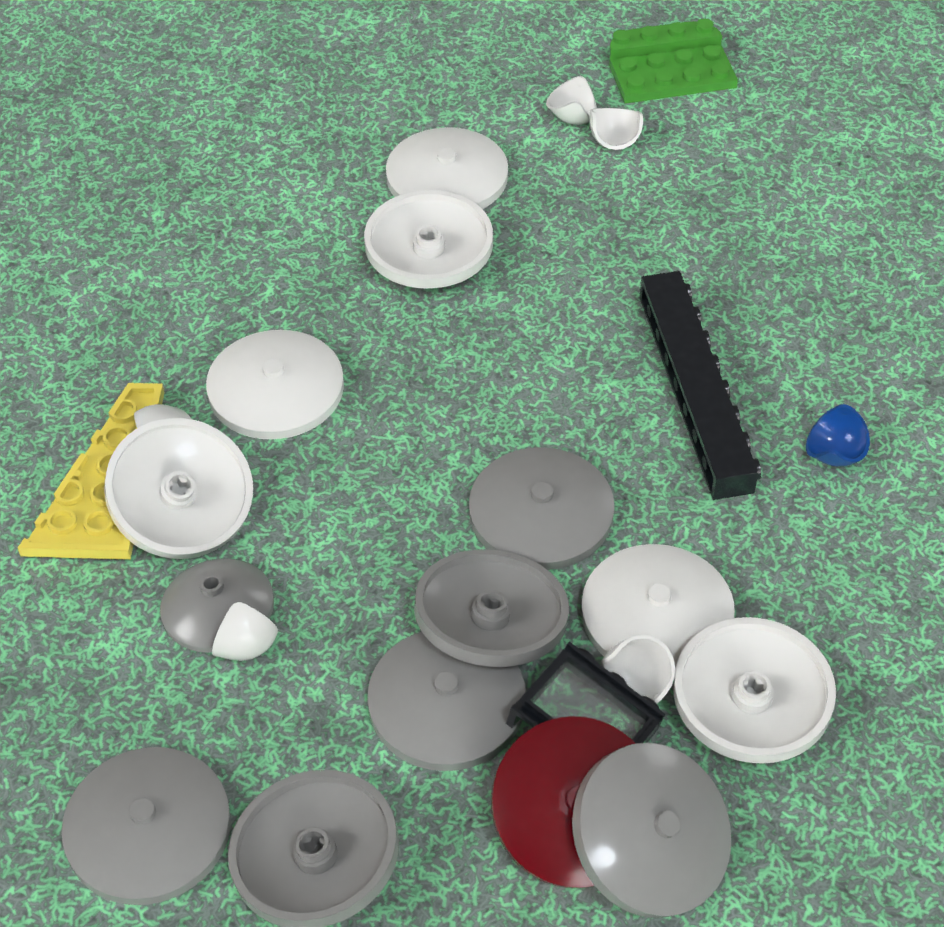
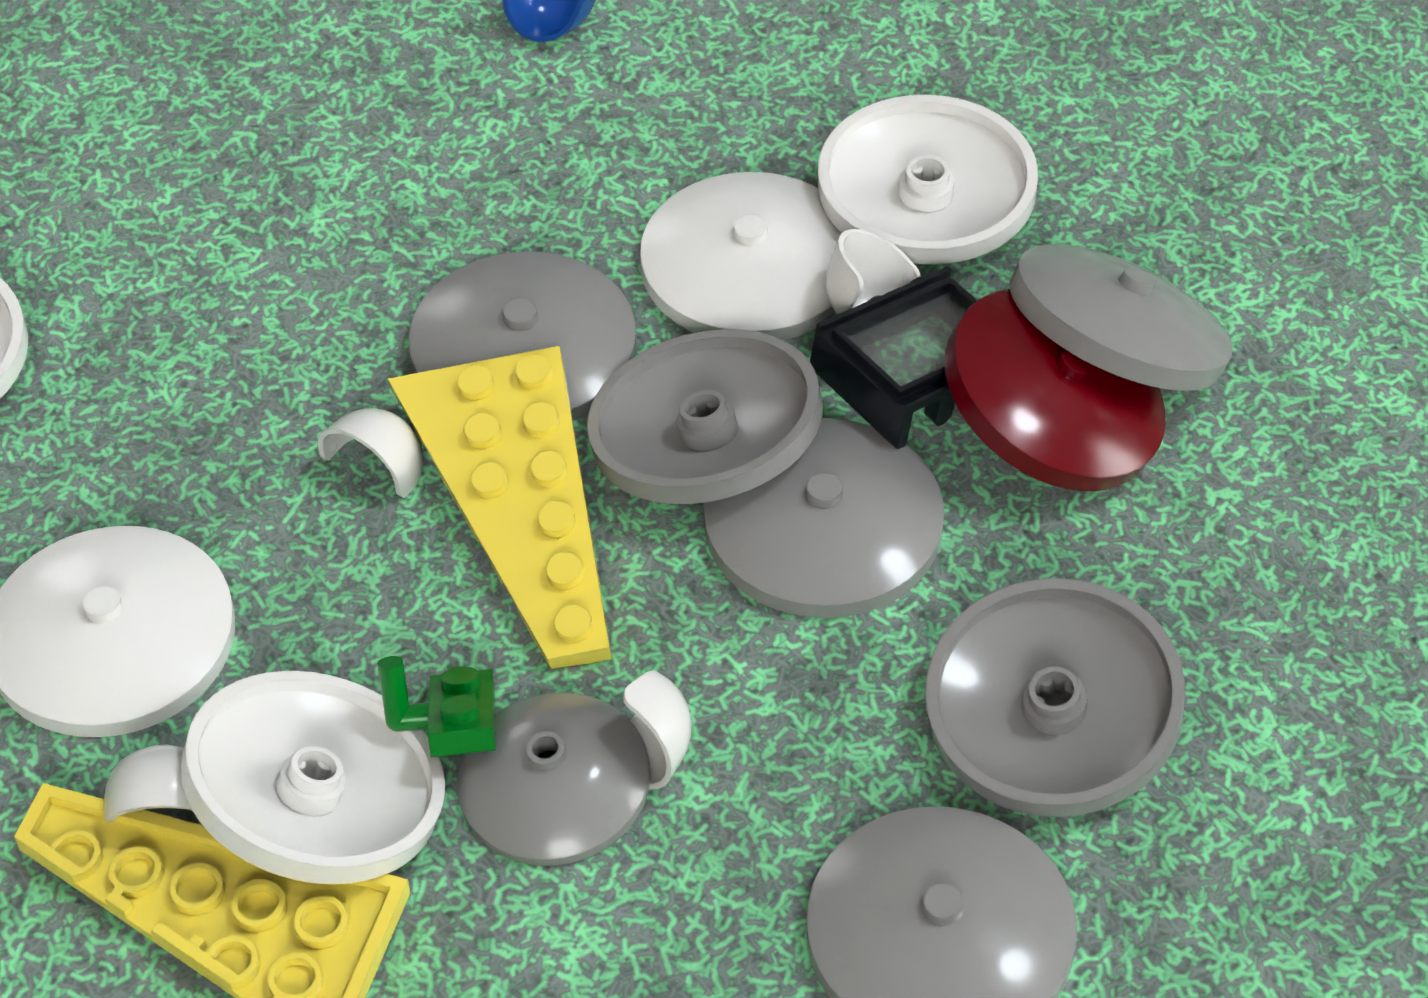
camera: 75 degrees left, 0 degrees up
(239, 543) = (458, 710): none -> green plate
(426, 458) = (385, 436): none -> white helmet
(430, 520) = (515, 473): none -> light yellow wing
(698, 386) = (371, 112): black brick -> none

